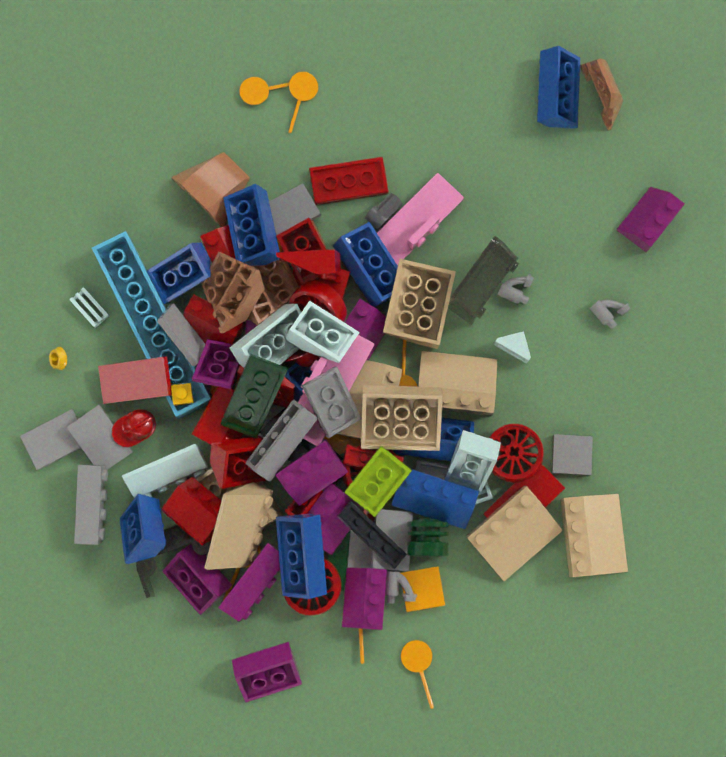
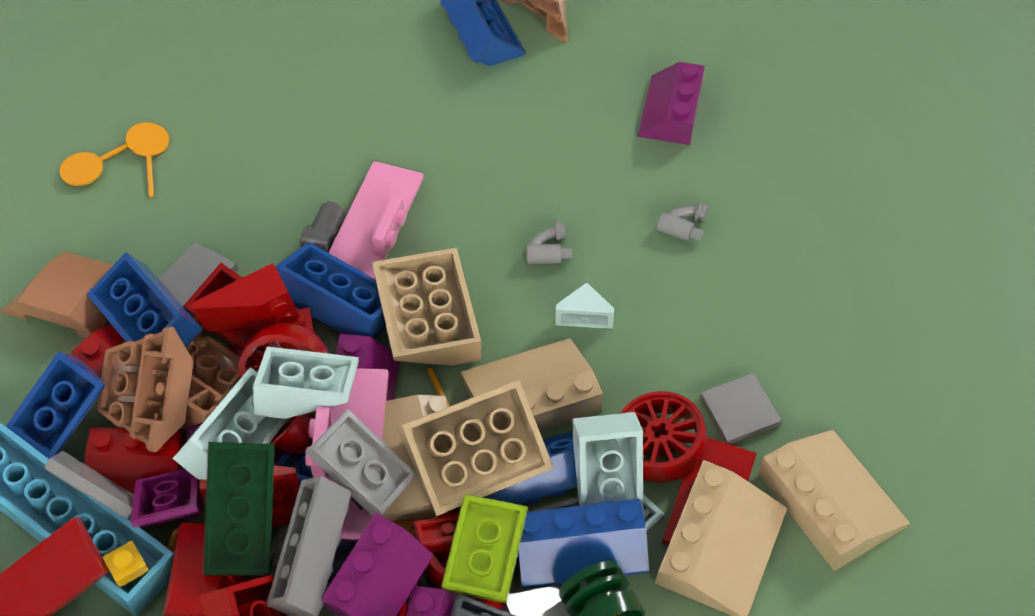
camera: 25 degrees left, 25 degrees down
(348, 180) = (258, 217): red tile -> none
(482, 280) = (496, 244): clear smoke windscreen -> none

